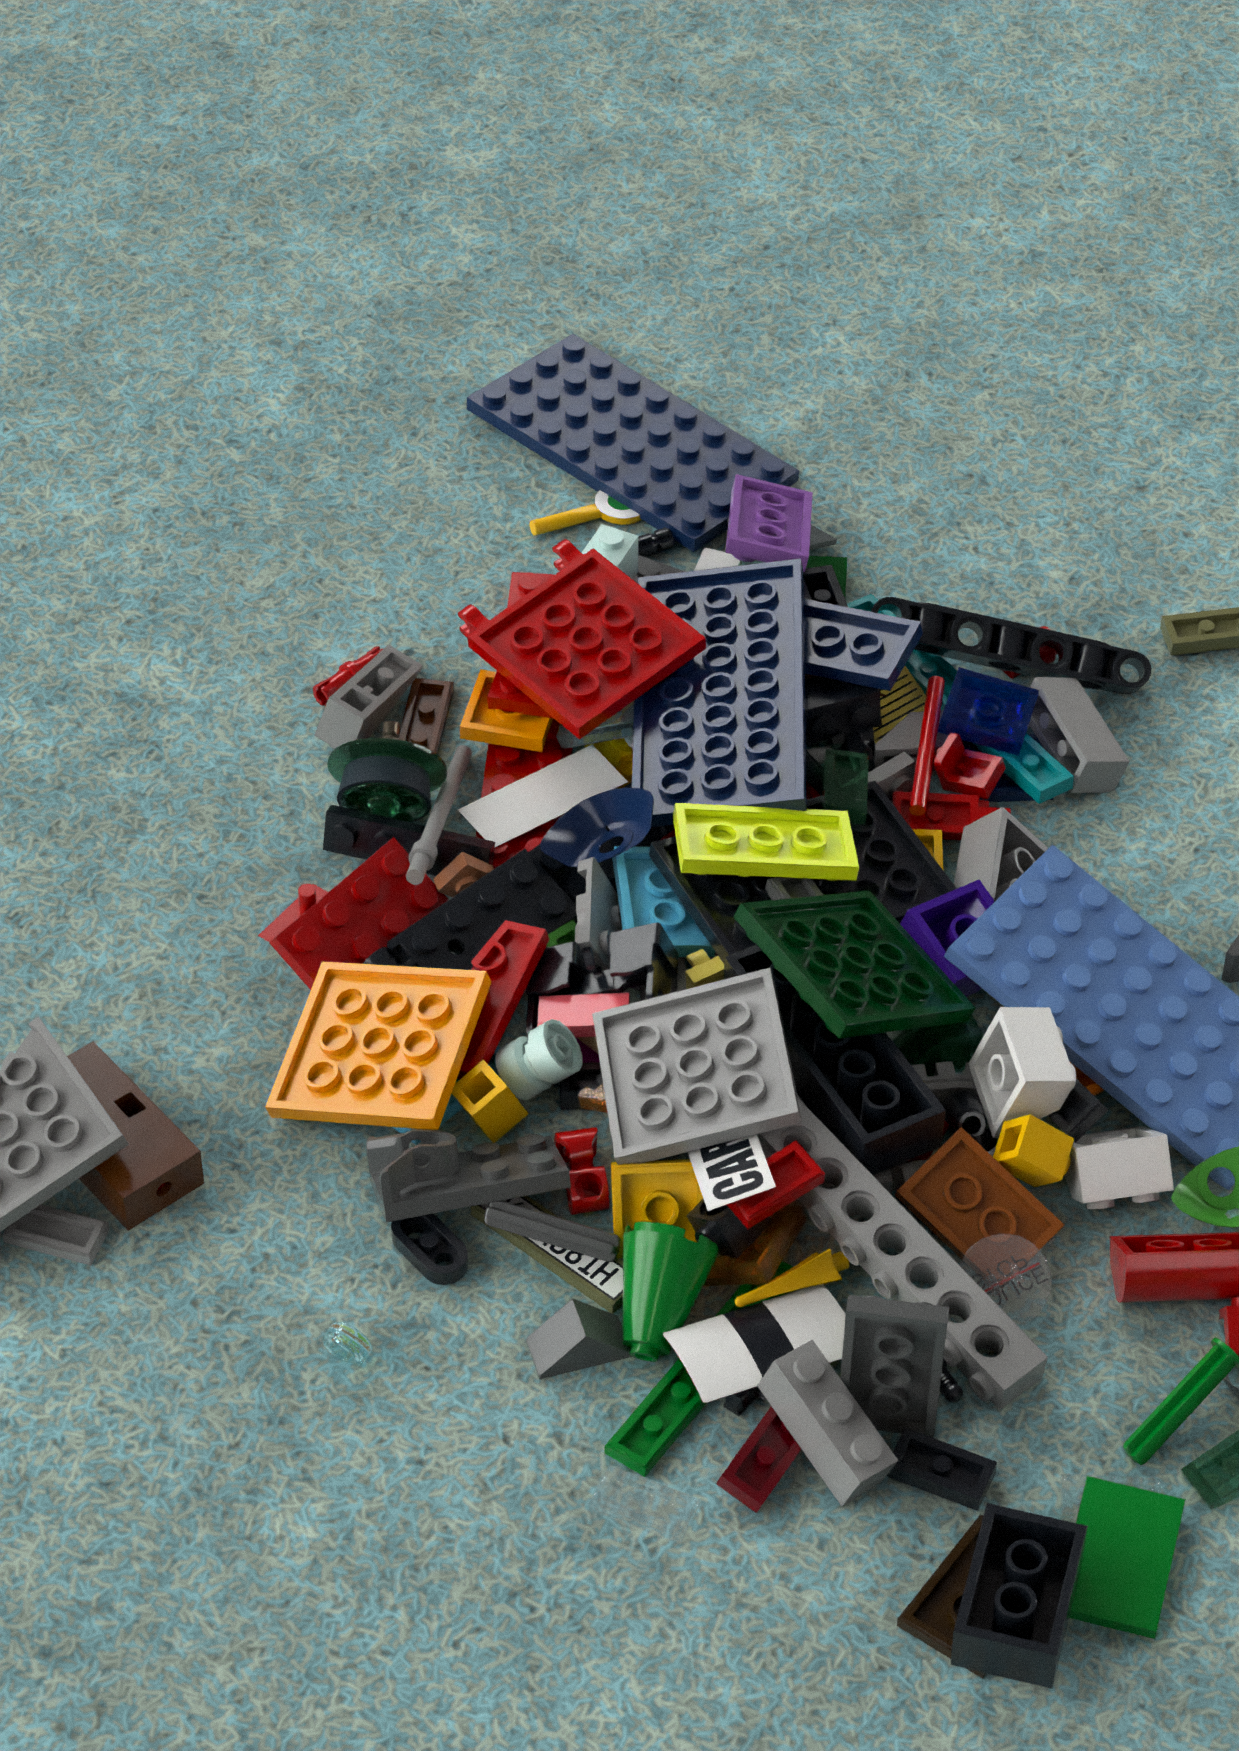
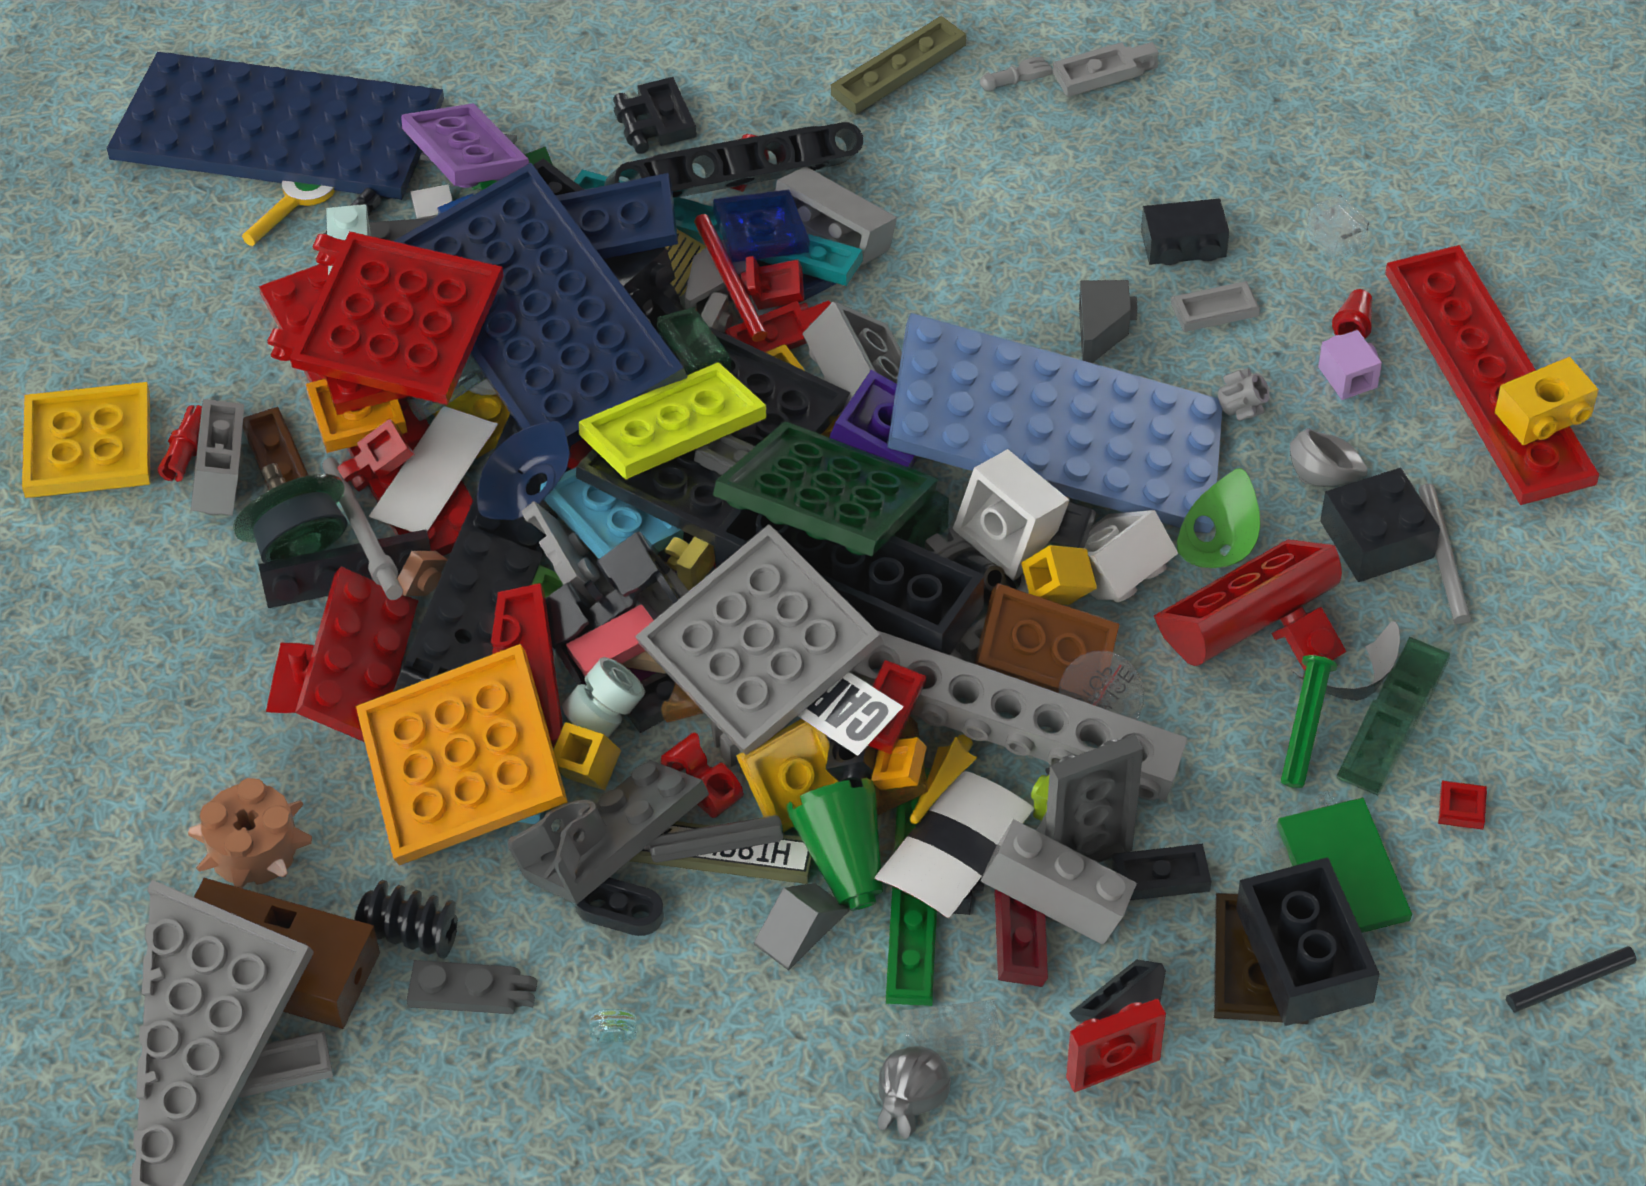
camera: 30 degrees left, 5 degrees up
(163, 1026) = (249, 833): none -> nougat brick
(241, 1164) = (409, 920): none -> black piece
(254, 1249) = (469, 987): none -> dark grey hinge
(273, 637) = (86, 440): none -> yellow plate
(503, 759) = (381, 453): none -> red plate
(567, 1530) = (911, 1084): none -> flat silver piece
(752, 1245) = (901, 767): none -> light orange plate
(770, 1591) = (1115, 1044): none -> red plate
(822, 1567) = (1136, 983): none -> black slope
(989, 576) = (665, 111): none -> black plate

